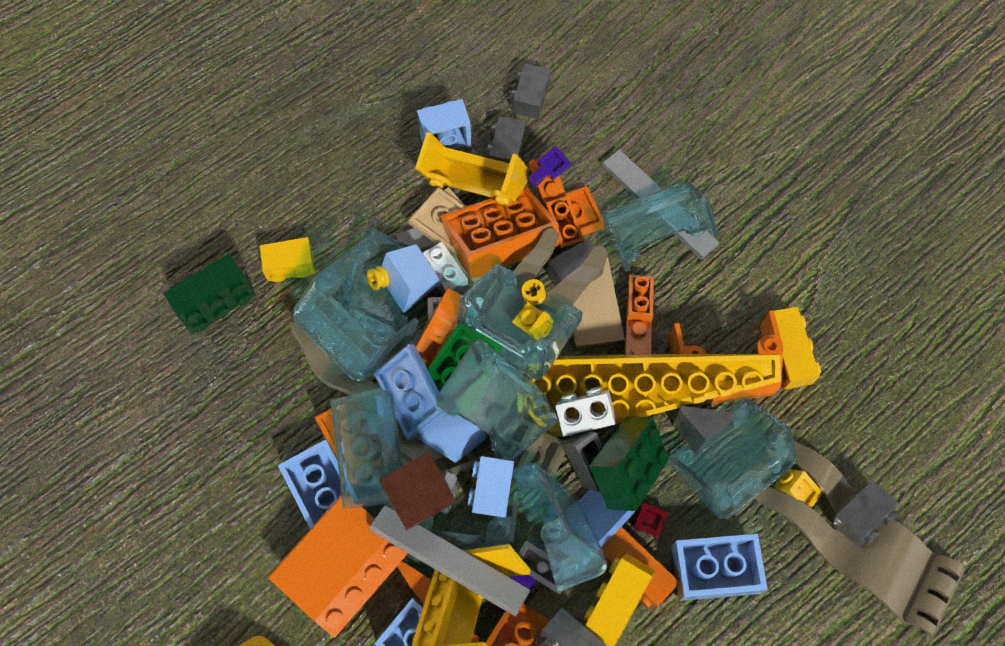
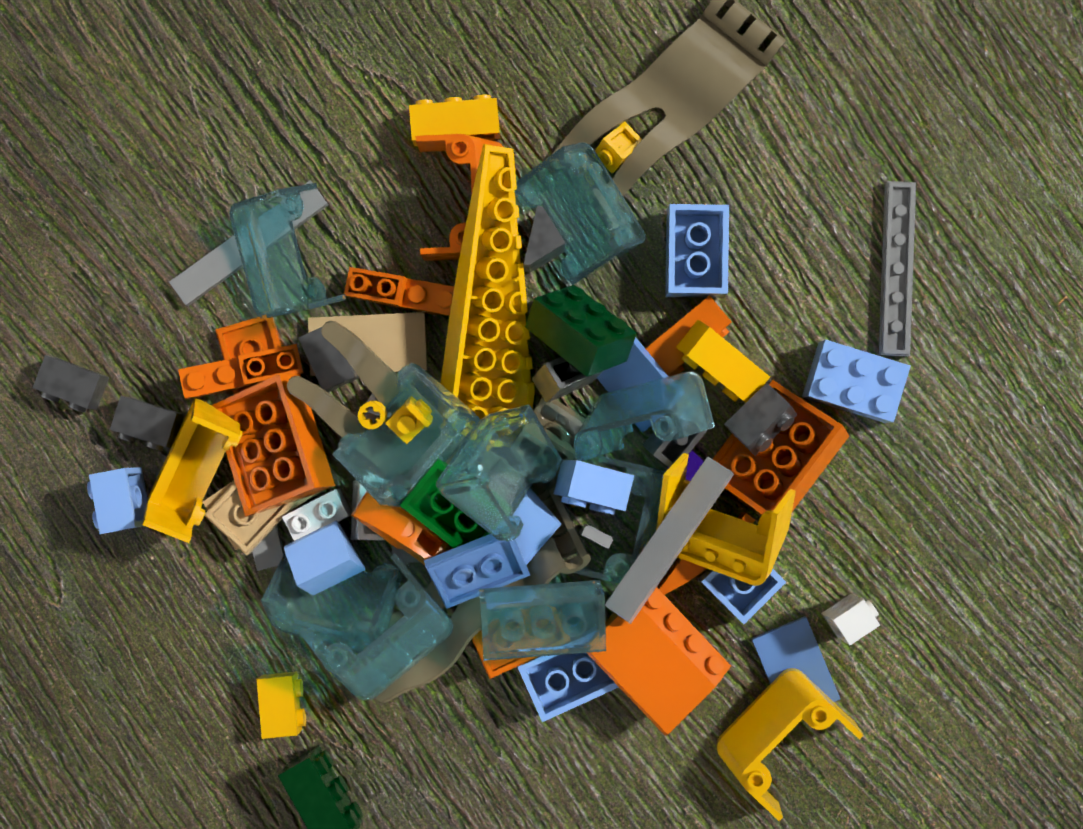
camera: 80 degrees left, 20 degrees up
(377, 278) = (320, 596): yellow bush -> none
(417, 491) = (602, 569): copper tile -> none
(550, 165) = (197, 371): dark purple plate -> none
(588, 418) = (523, 368): white brick -> none
(650, 520) = (638, 314): dark red plate -> none
(866, 514) = (657, 81): flat silver brick -> none

